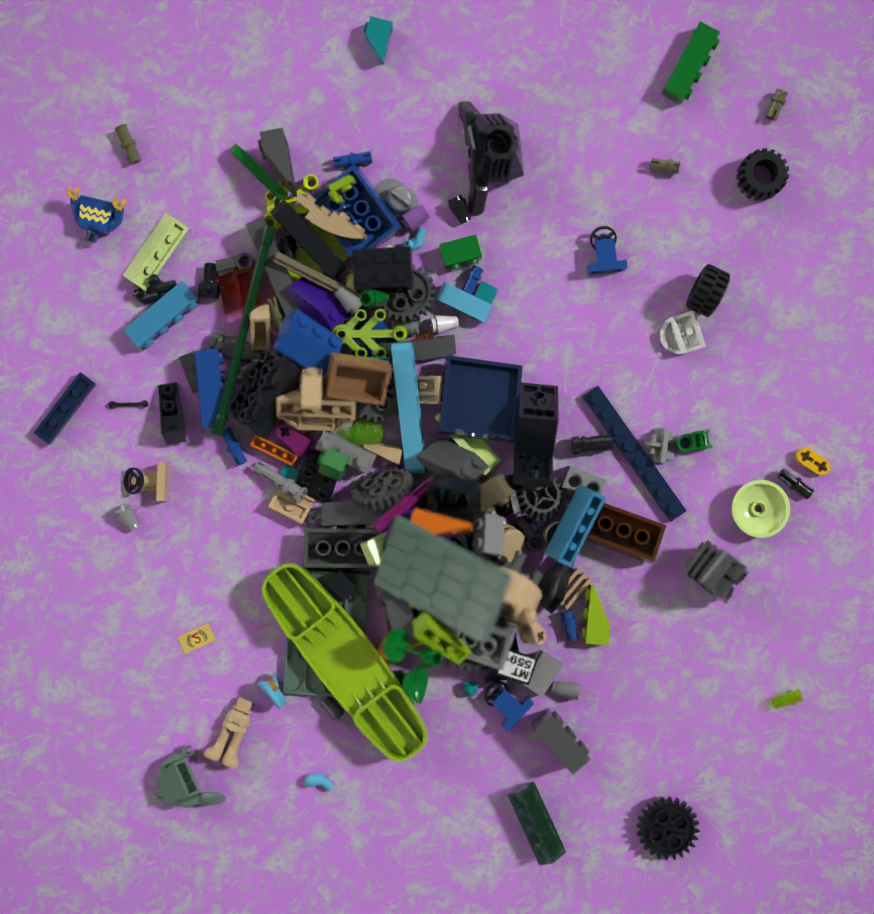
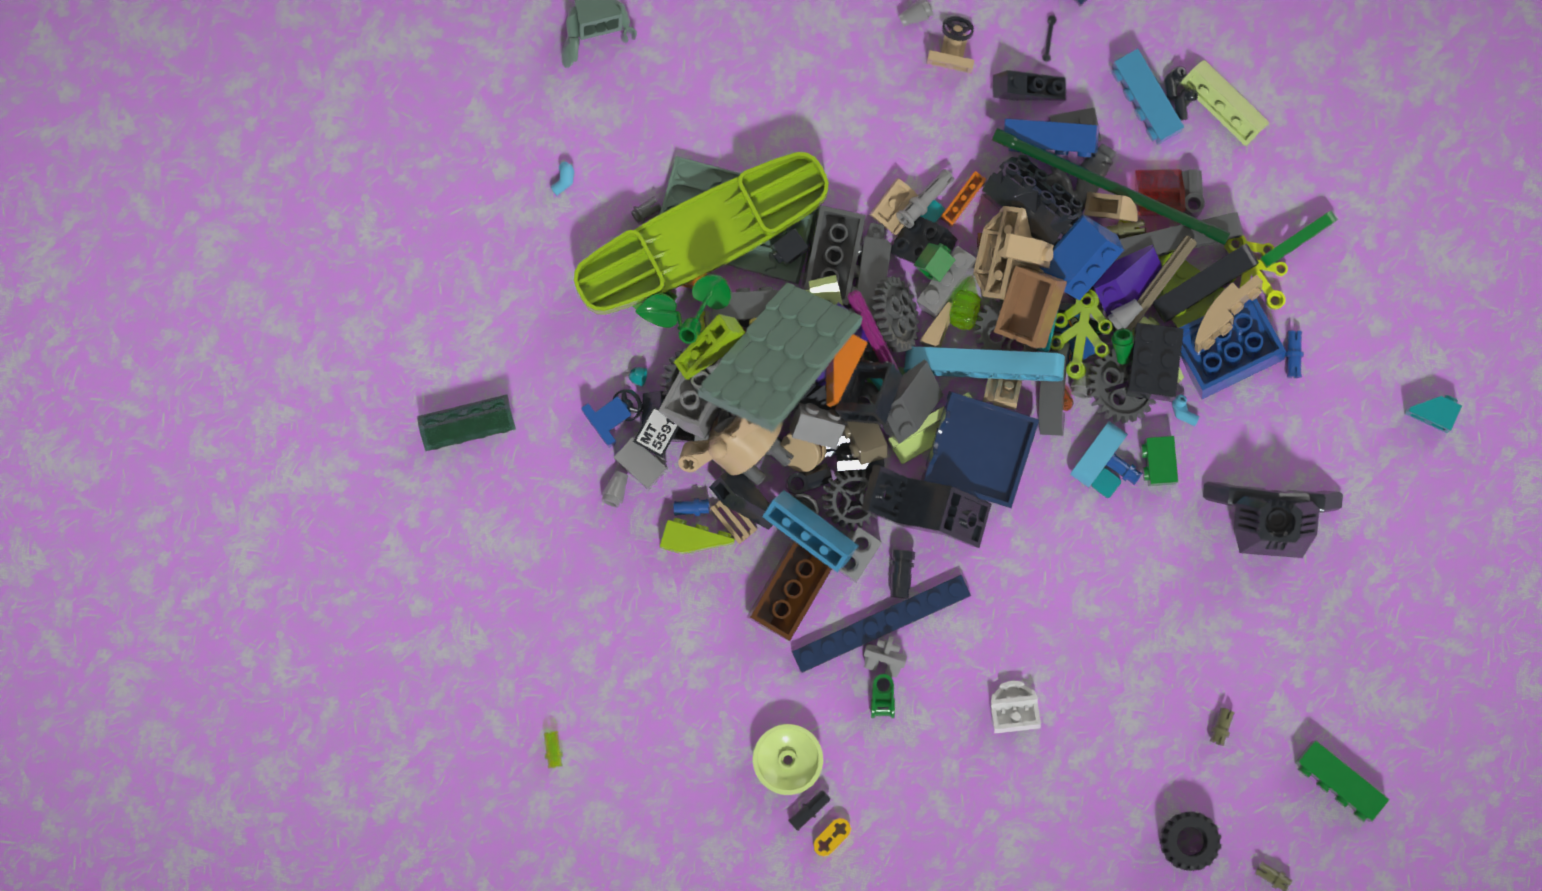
camera: 95 degrees right, 5 degrees down
(95, 214) = (1280, 41): blue torso -> none
(128, 144) = (1358, 93): olive pin -> none
(196, 638) = (758, 68): clear yellow sticker -> none
(209, 288) = (1169, 157): black axle -> none
(233, 447) = (976, 151): blue pin -> none
(236, 721) = (652, 98): tan piece -> none
(273, 692) = (680, 145): medium azure piece -> none
(276, 151) = (1319, 265): dark grey slope -> none
(287, 246) = (1201, 257): black cone -> none
(296, 441) = (969, 225): magenta piece -> none
(342, 185) = (1261, 333): lime bracket -> none
(396, 196) = (1239, 399): light grey piece -> none
(414, 217) = (1211, 414): medium lavender brick -> none
(443, 323) = (1078, 424): white cone -> none
(459, 208) = (1212, 470): black cone -> none
(561, 741) = (558, 469): dark grey brick -> none
(605, 253) = (1129, 633): blue piece -> none
(674, 811) = (410, 567): black gear -> none
(708, 290) = (1061, 744): black tyre -> none
(715, 570) = (724, 688): dark grey piece -> none

